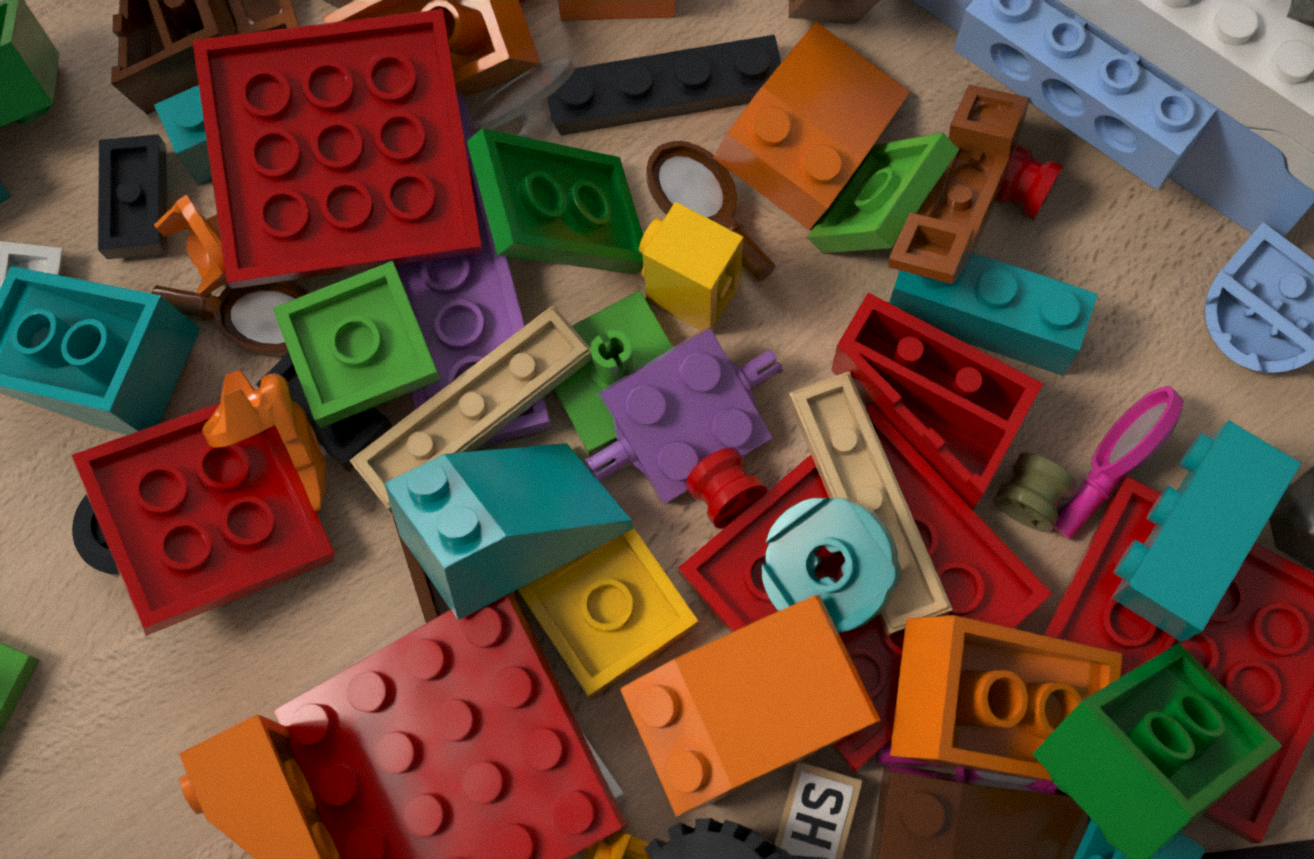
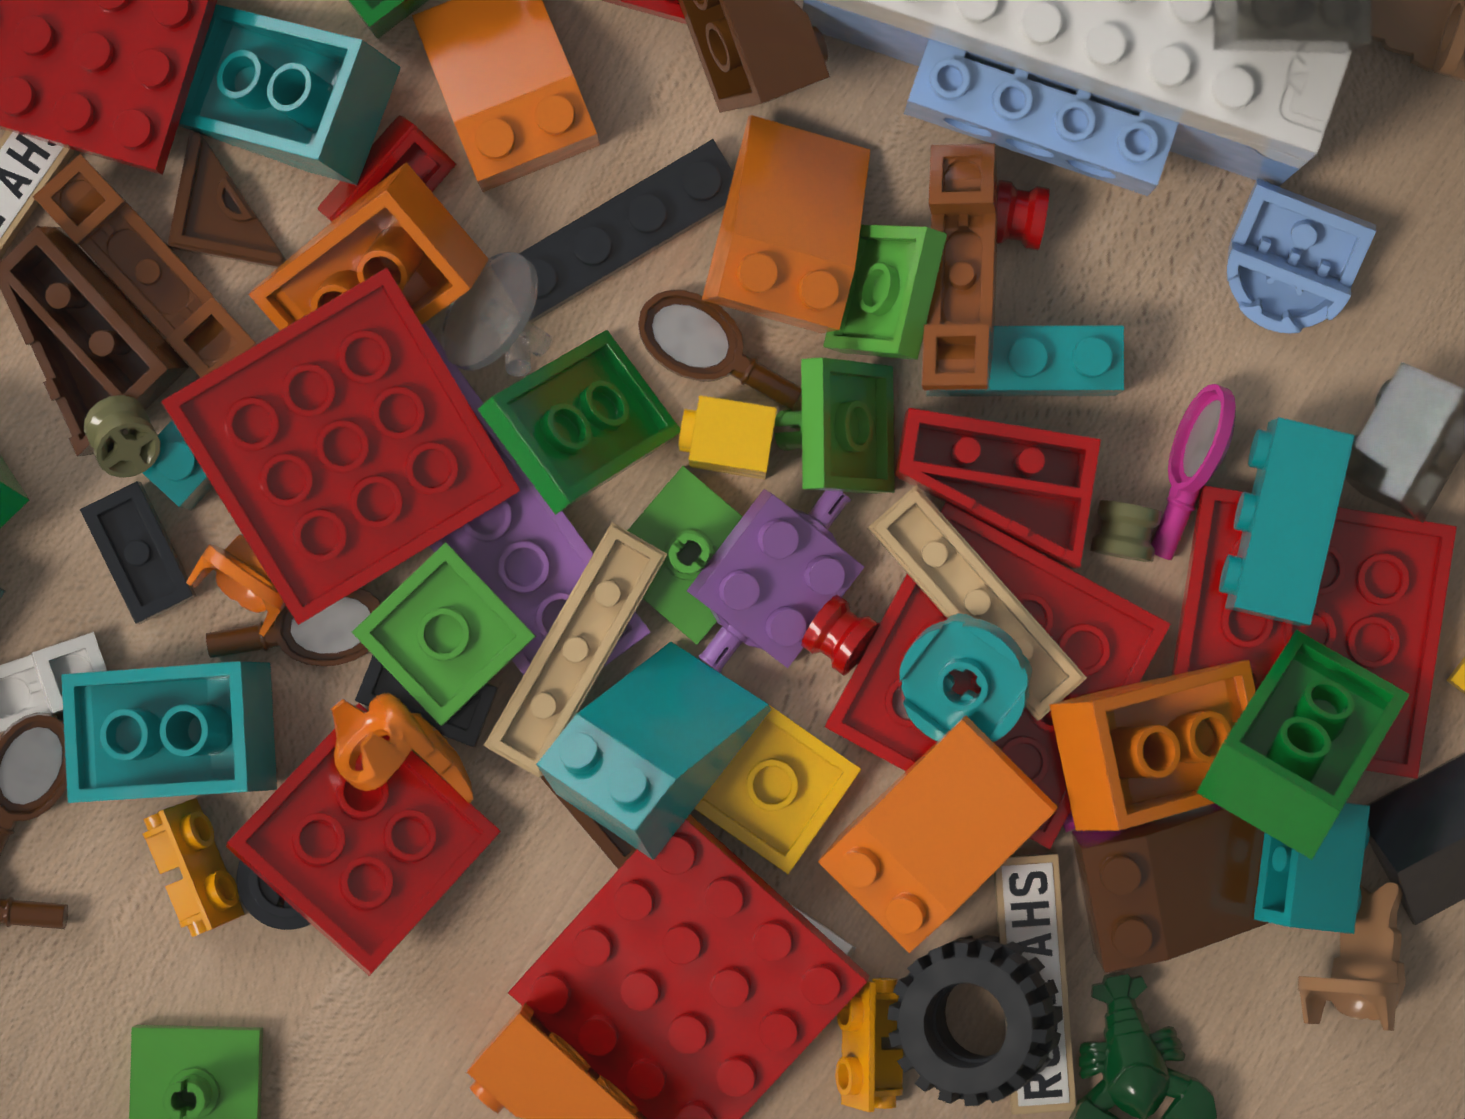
camera: 30 degrees left, 15 degrees up
(51, 485) = (185, 839): none -> light orange hinge
(145, 82) = (120, 453): none -> olive wheel
(800, 297) = (843, 426): none -> bright green tile

